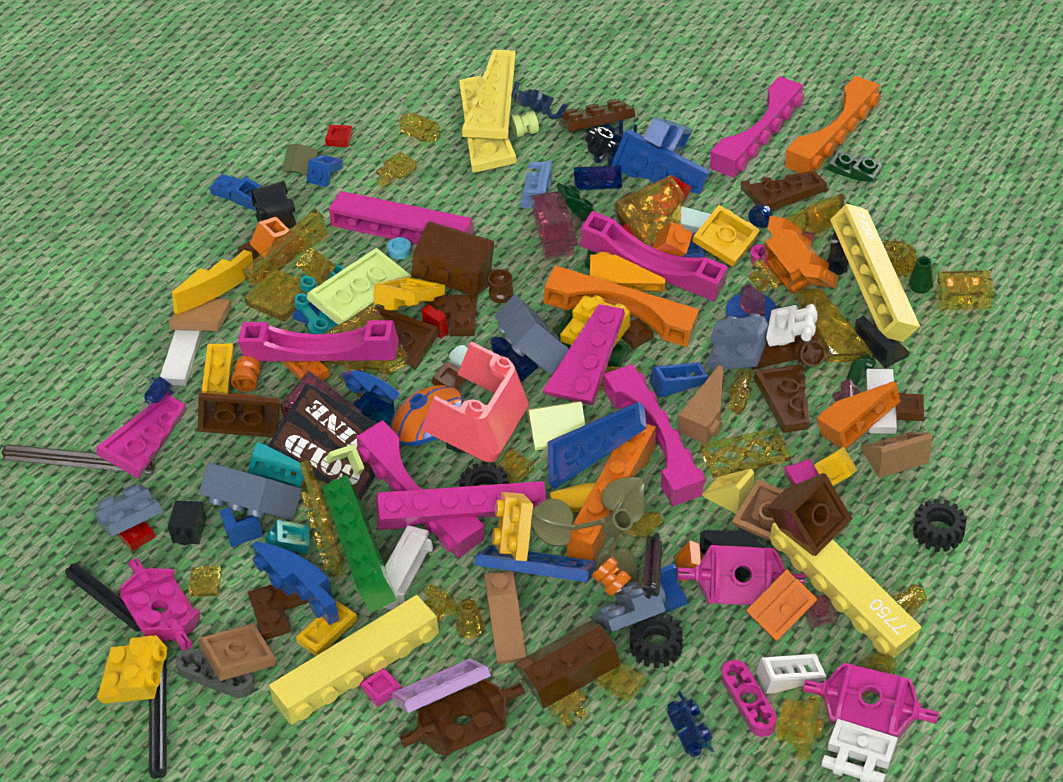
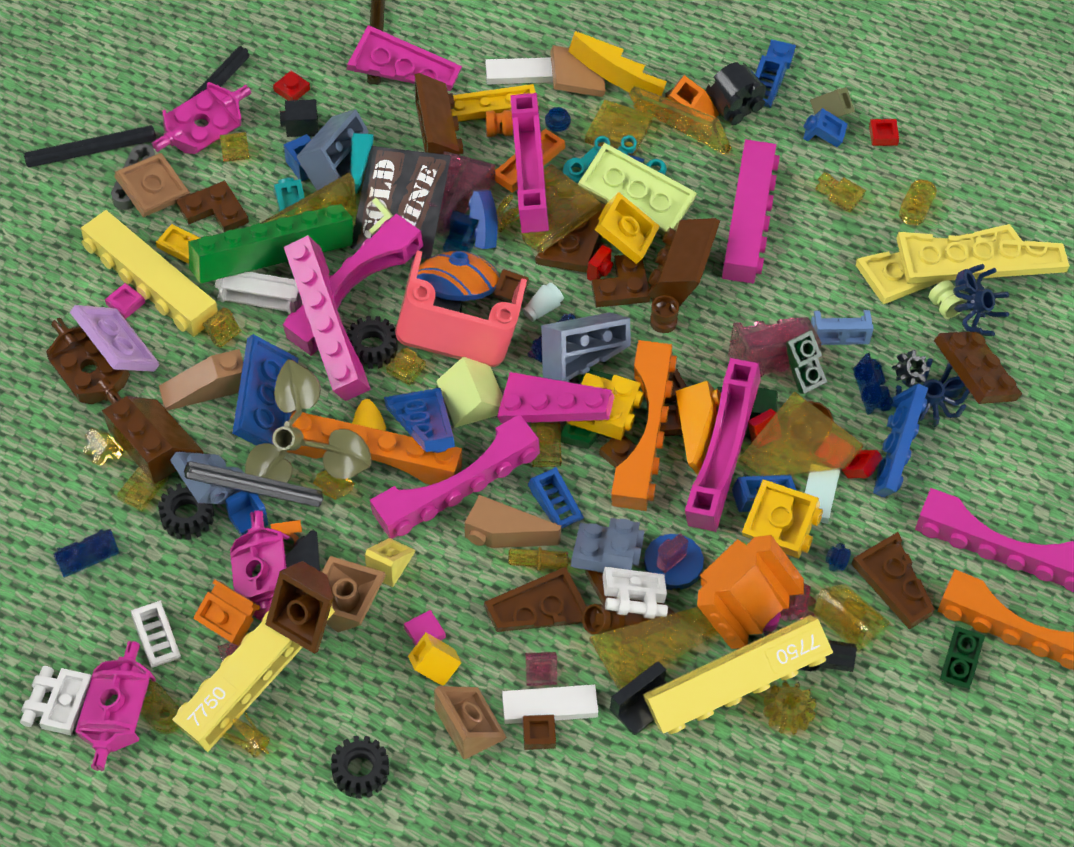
camera: 75 degrees right, 10 degrees up
(126, 510) = (304, 69): sand blue plate -> none
(133, 671) = (125, 116): yellow plate -> none
(157, 390) = (456, 56): clear blue hinge -> none
(297, 575) = (231, 205): blue slope -> none
(315, 265) = (661, 147): clear yellow plate -> none
(399, 248) = (718, 213): medium azure tile -> none
(469, 620) = (196, 349): clear yellow cone -> none
(513, 525) = (305, 350): yellow plate -> none
(611, 576) = (248, 448): orange wheel -> none
(668, 134) = (936, 434): slope -> none
(673, 239) = (753, 461): orange brick -> none
(736, 465) = (439, 589): clear yellow window -> none
(748, 710) = (125, 587): dark pink beam -> none
(801, 724) = (81, 644): clear yellow brick -> none
(856, 414) = (501, 665): orange slope -> none
(858, 366) = (597, 675): dark green arm -> none
(921, 277) = (759, 737): dark green cone -> none
(964, 290) = (747, 787): clear yellow brick -> none

